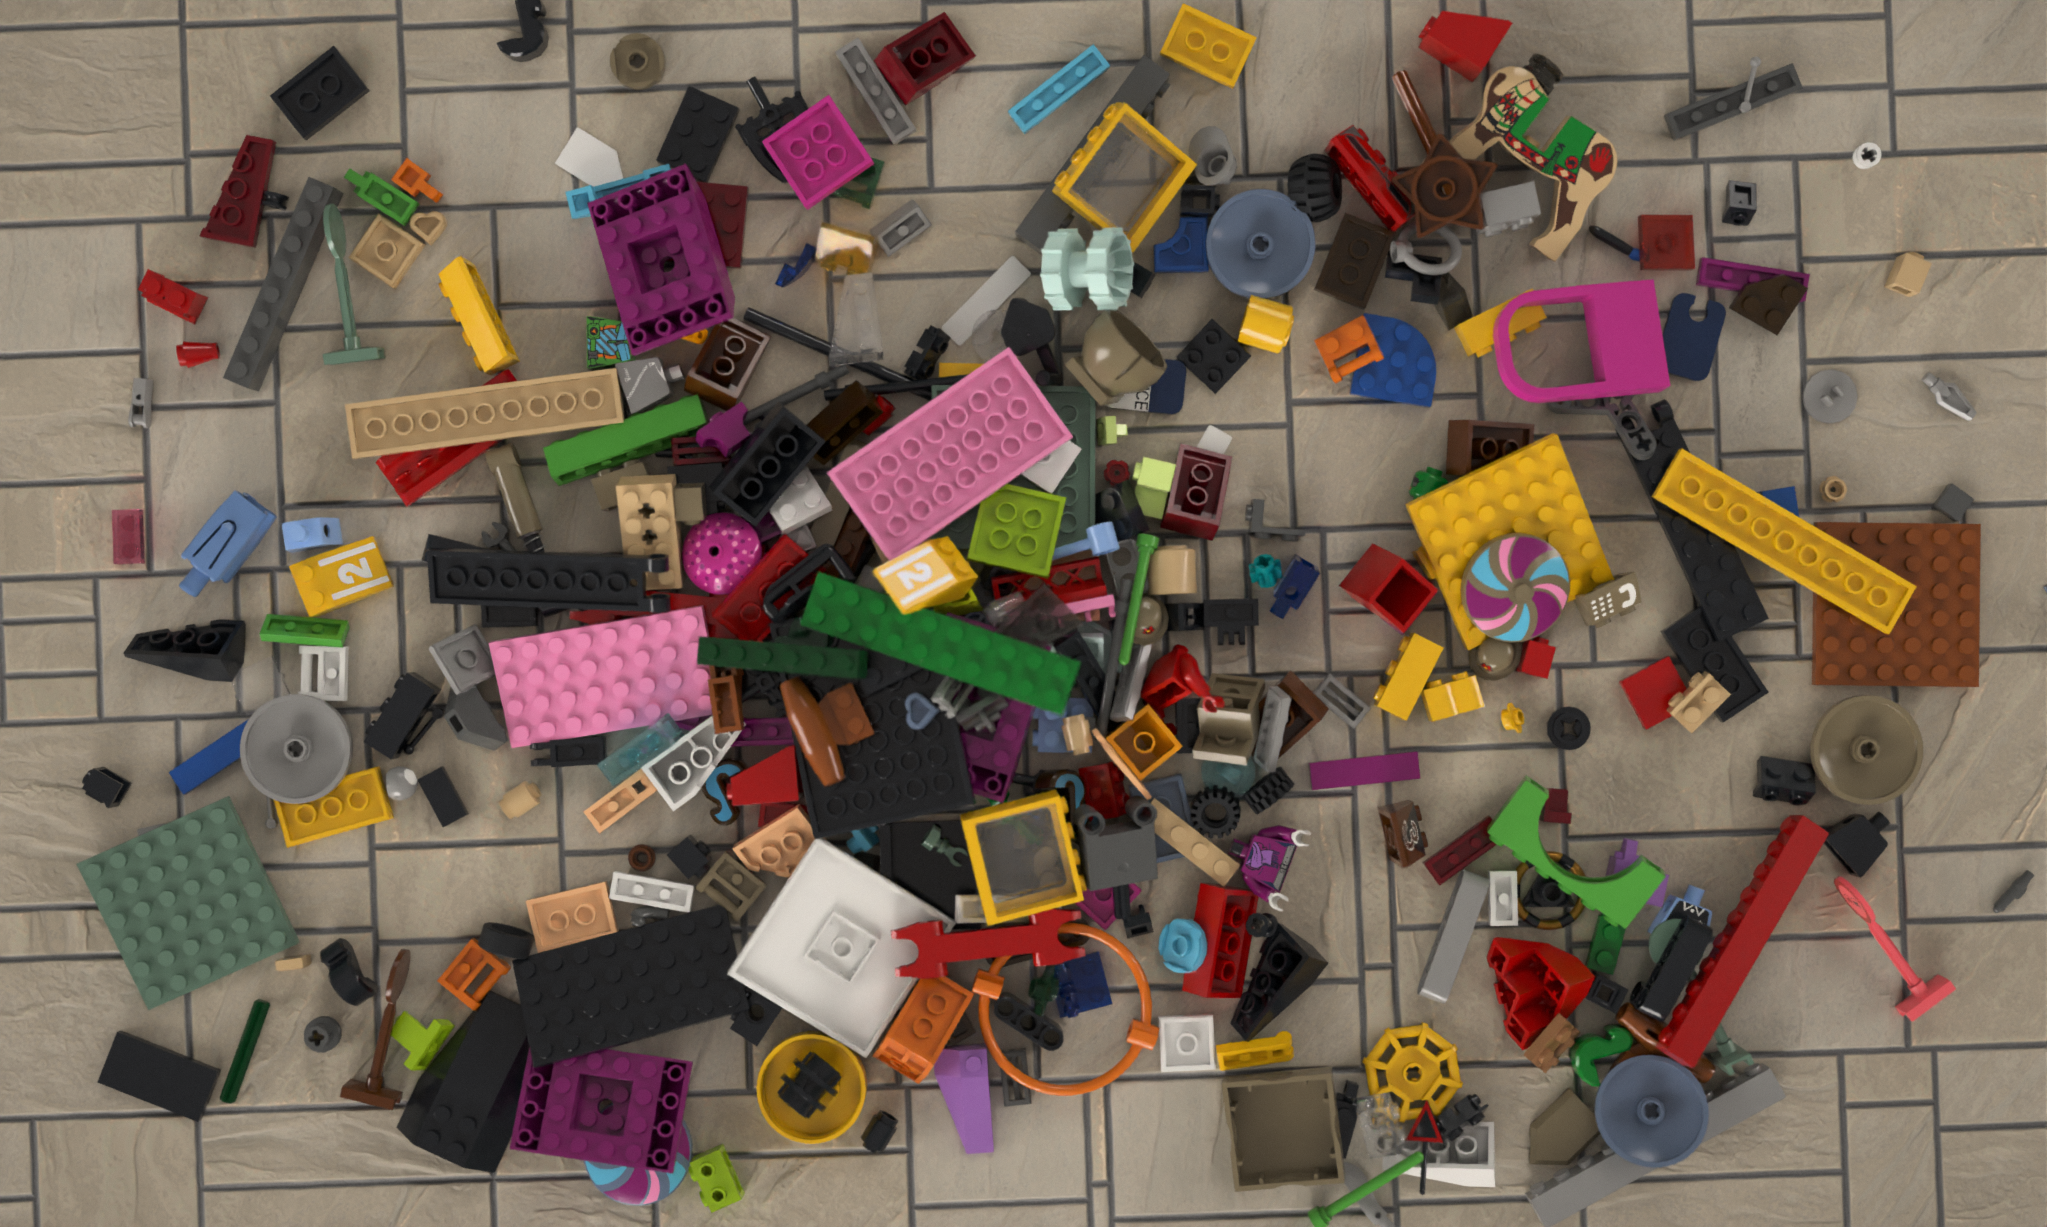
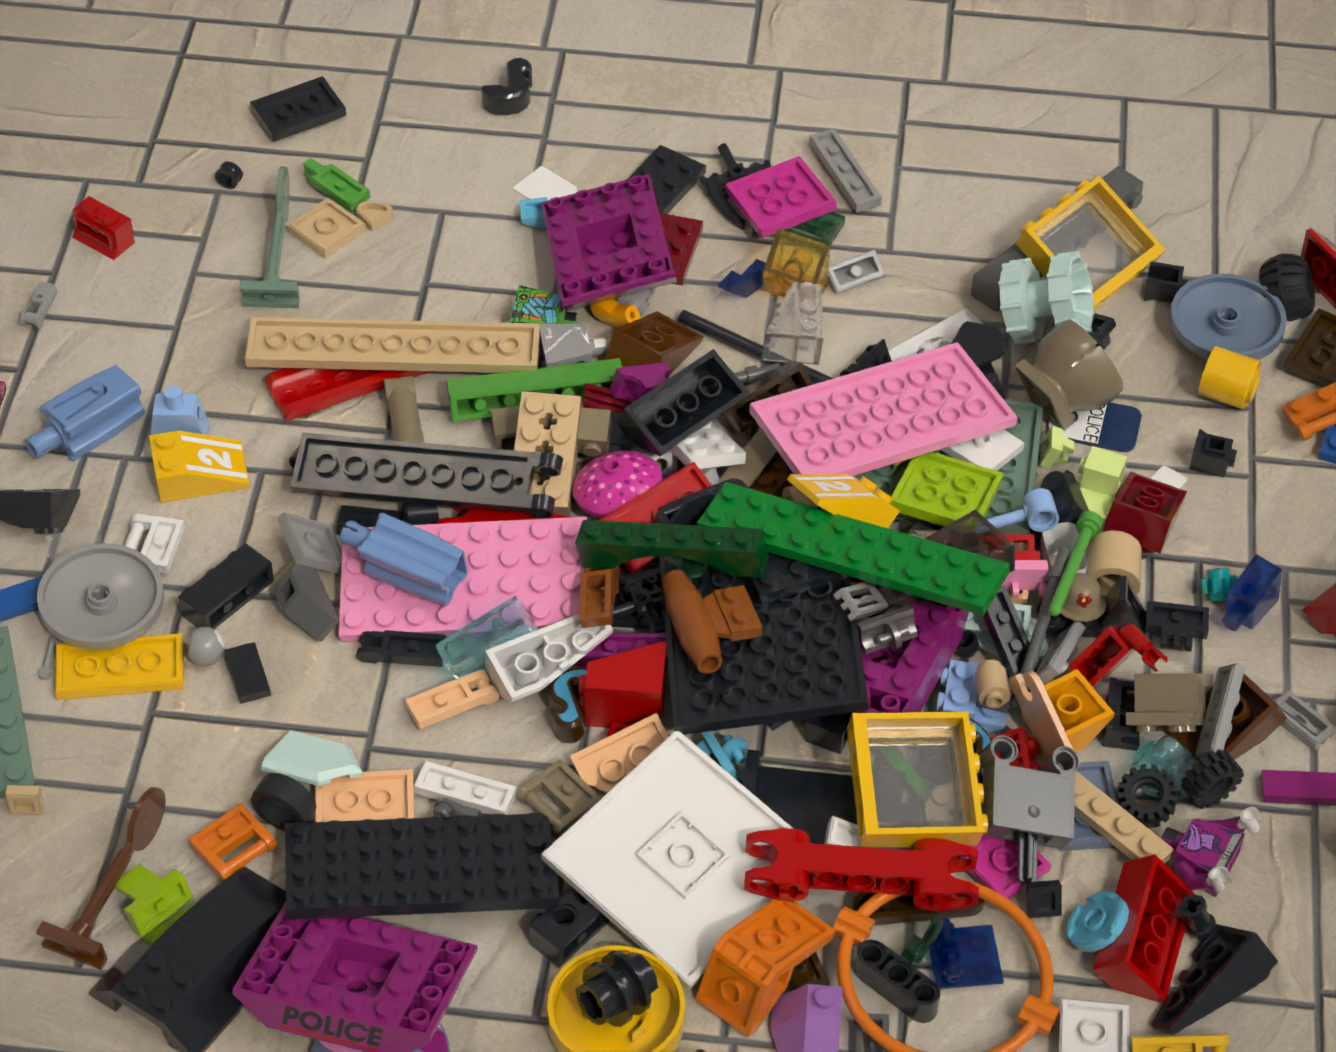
camera: 10 degrees right, 40 degrees down
(196, 353) = (110, 274): red cone -> none
(240, 207) = (196, 171): dark red wing -> none
(282, 286) = (211, 236): dark grey brick -> none
(304, 630) = (142, 504): bright green plate -> none
(323, 1025) = (31, 880): dark grey piece -> none
(346, 973) = (87, 817): black animal -> none
(414, 180) = (373, 177): orange plate -> none
(437, 713) = (263, 600): black hinge -> none
(478, 316) = (405, 271): yellow slope -> none
(519, 885) = (311, 759): none -> light aqua tile
(520, 799) = (336, 681): tan brick -> none
(552, 686) = (408, 558): none -> medium blue piece
(625, 52) = (604, 132): dark tan plate -> none
(634, 861) = (461, 751): reddish brown plate -> none
(691, 857) = (517, 759): black brick -> none
(920, 710) = (818, 615): sand blue tile -> none
(924, 58) = (894, 151): dark red slope -> none
(933, 839) = (806, 780): sand green piece -> none
(1059, 89) = (1028, 189): medium azure plate -> none
(1185, 250) = (1146, 323): blue tile -> none
(1207, 46) = (1183, 176): yellow plate -> none
(1213, 156) = (1185, 249): light grey piece -> none
(1213, 356) = (1173, 403): black hinge -> none
(1243, 410) = (1212, 454): none -> black window
(1254, 515) = (1224, 551): dark grey bracket -> none

